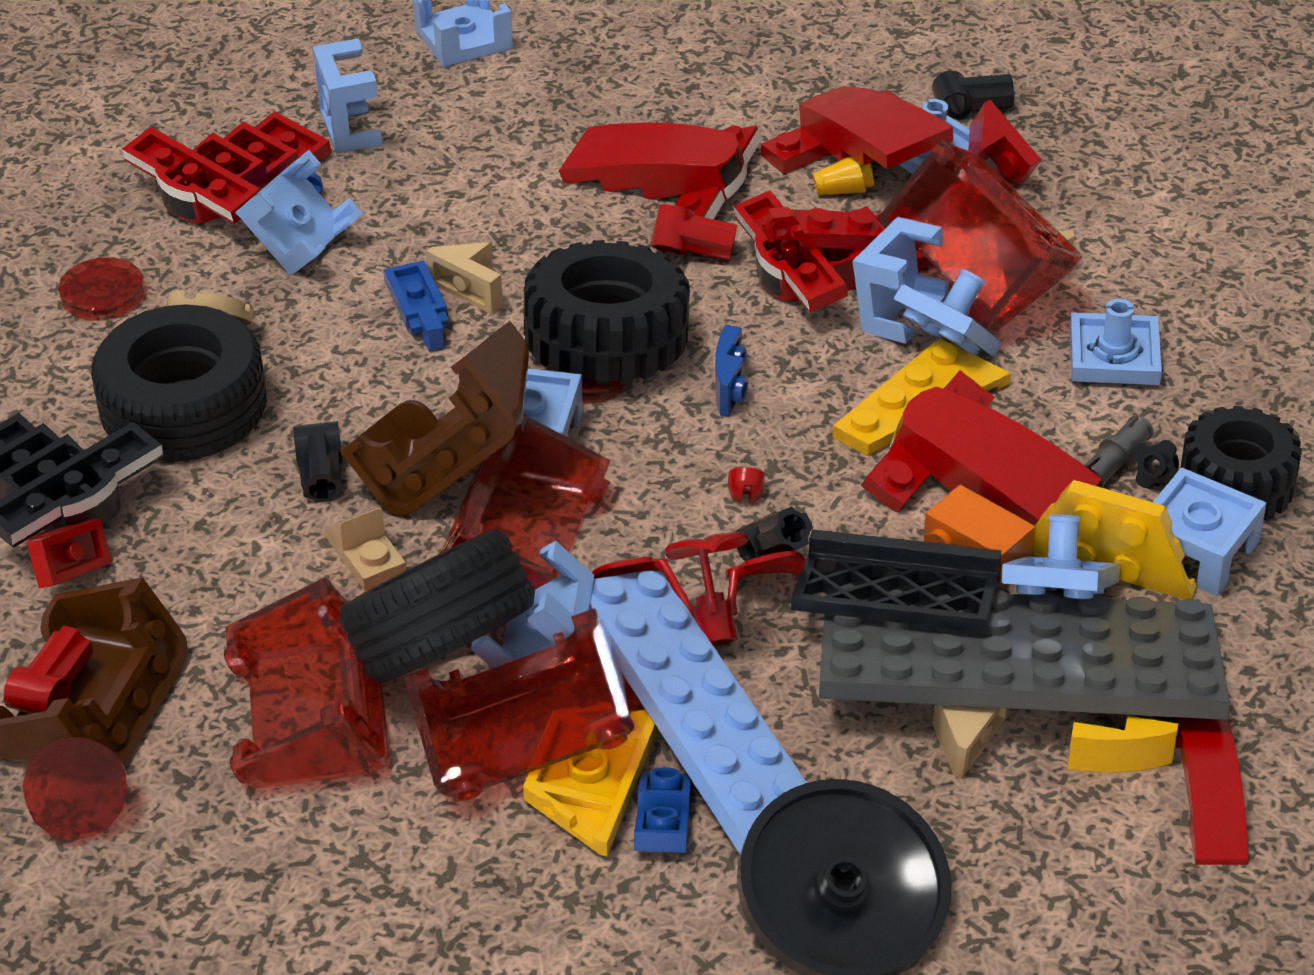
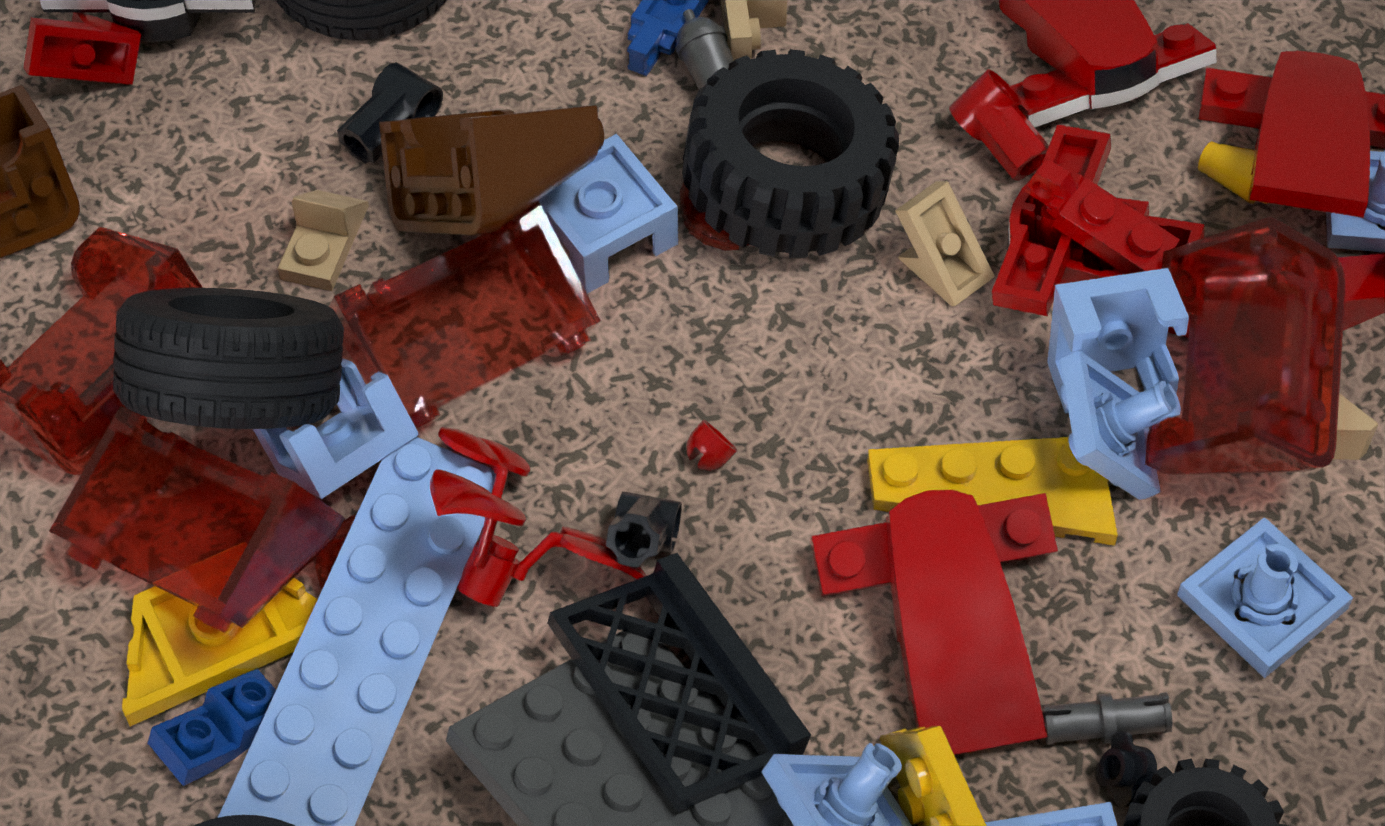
camera: 45 degrees right, 15 degrees up
(478, 307) = (702, 47): none -> flat silver piece
(729, 365) = (829, 316): blue slope -> none
(741, 305) = (943, 244): none -> tan slope
(974, 521) = (839, 688): orange brick -> none

